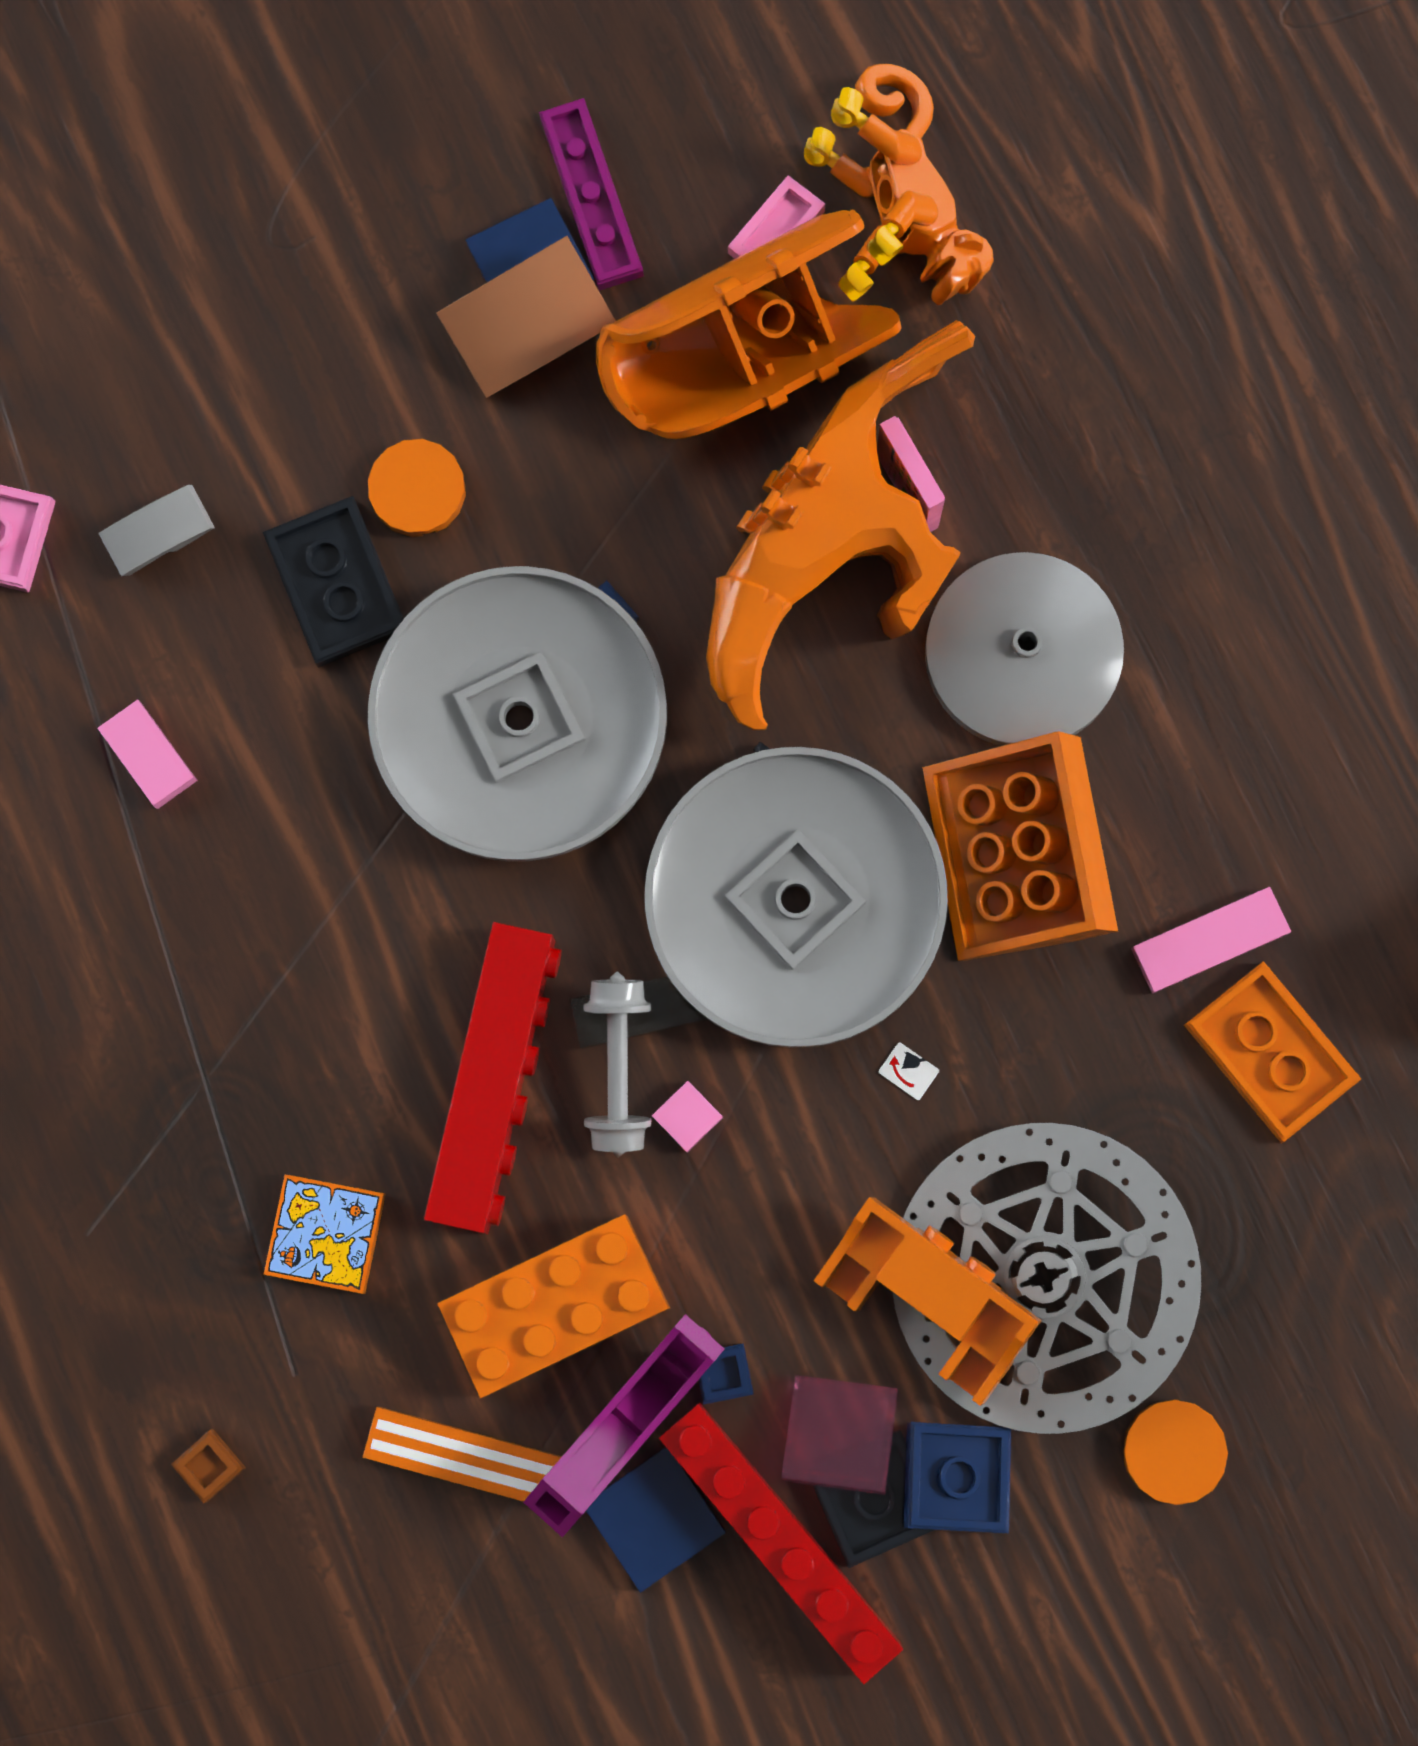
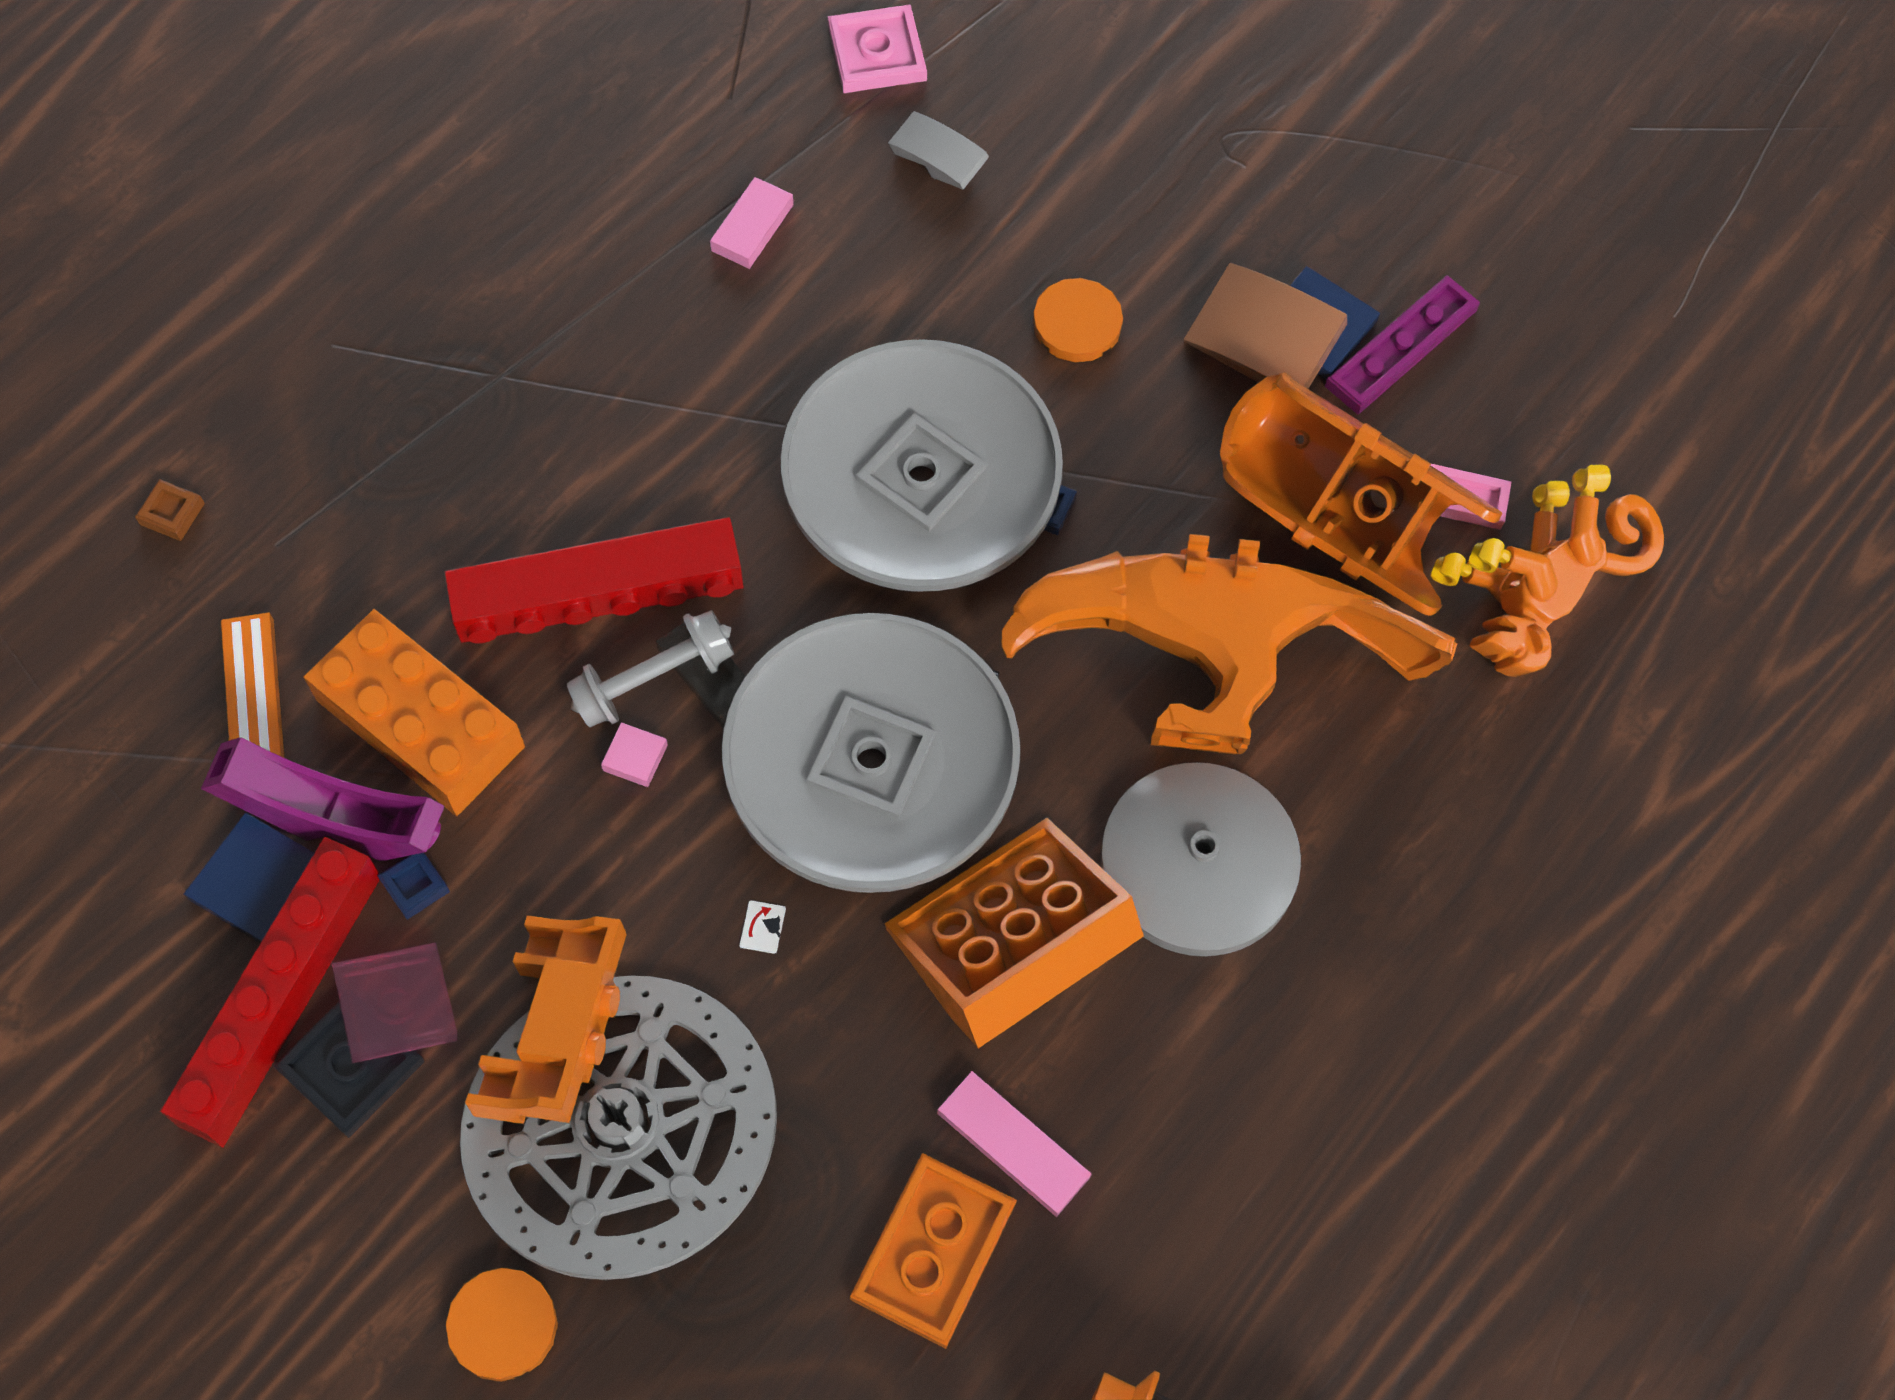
camera: 55 degrees right, 15 degrees down
(324, 1234) = (405, 514): tile -> none
(334, 581) = (967, 292): black tile -> none
(909, 470) = (1300, 681): bright pink tile -> none
(957, 1477) = (395, 1126): dark blue tile -> none

